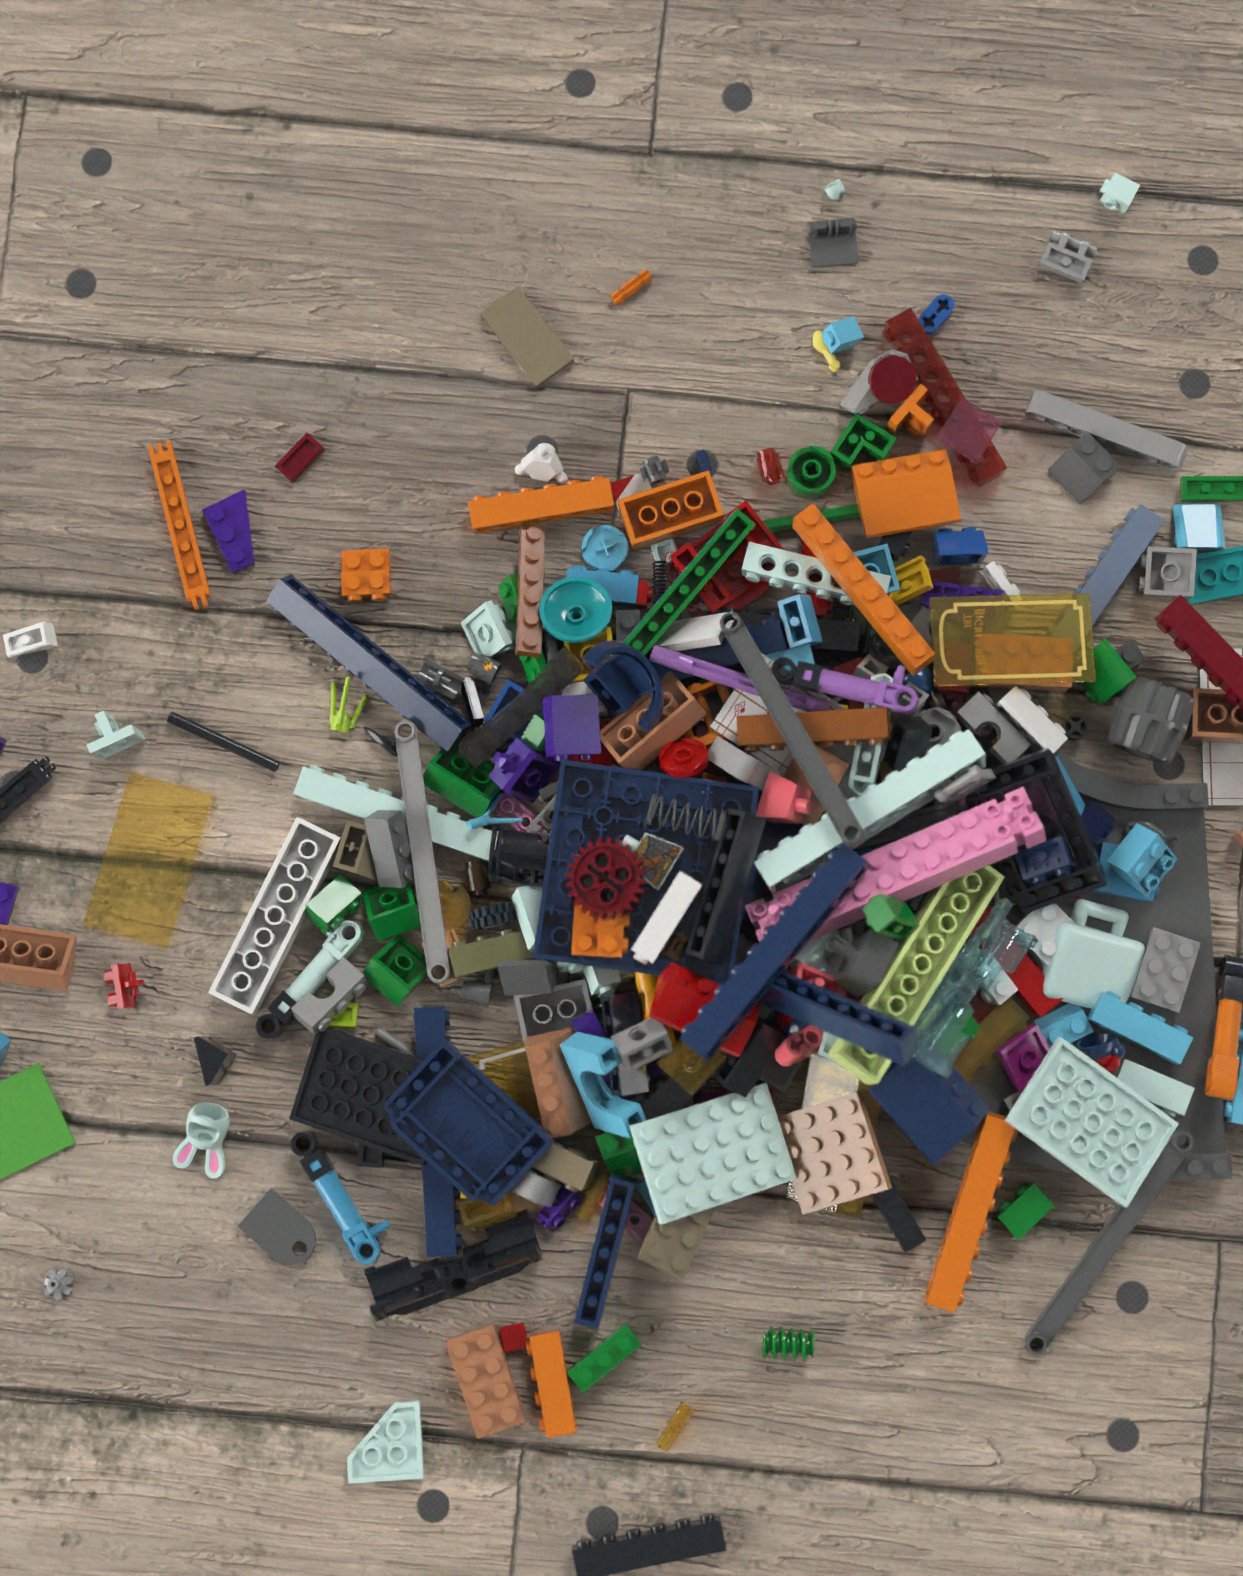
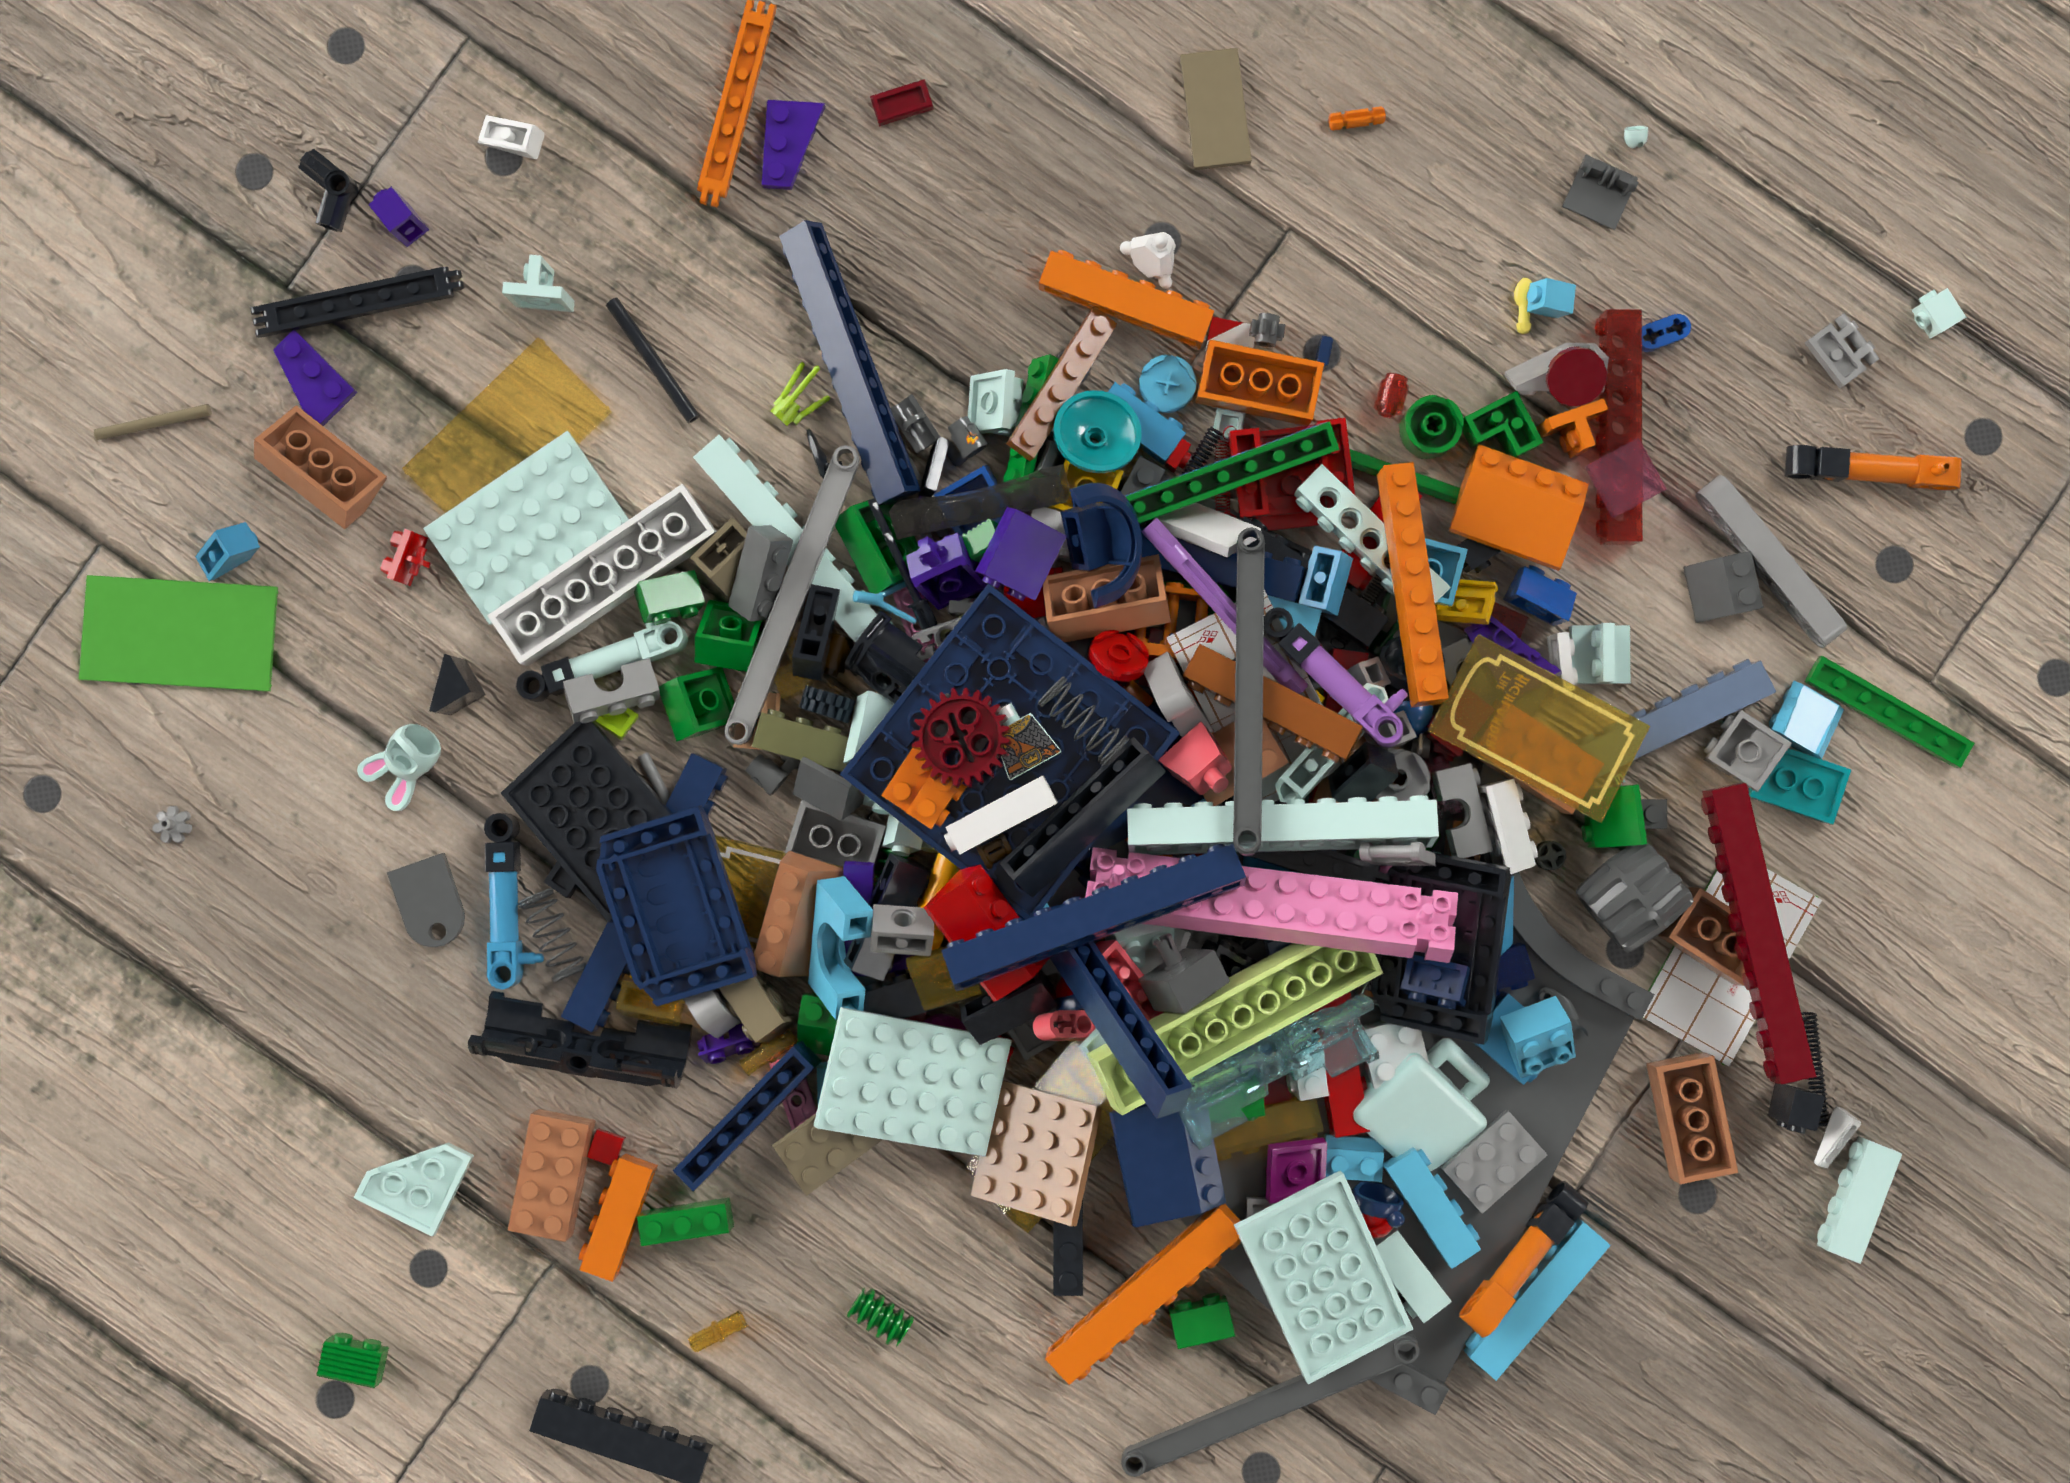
camera: 25 degrees right, 5 degrees up
(197, 912) = (526, 523): none -> light aqua plate
(366, 575) = (900, 268): orange plate -> none
(412, 1222) = (566, 972): none -> dark grey piece
(455, 868) = (815, 633): none -> black slope
(519, 807) = (920, 605): none -> black piece
(890, 916) = (1237, 949): green brick -> none
(1026, 563) = (1601, 653): none -> light aqua bracket
(1115, 335) = (1841, 464): none -> orange piece

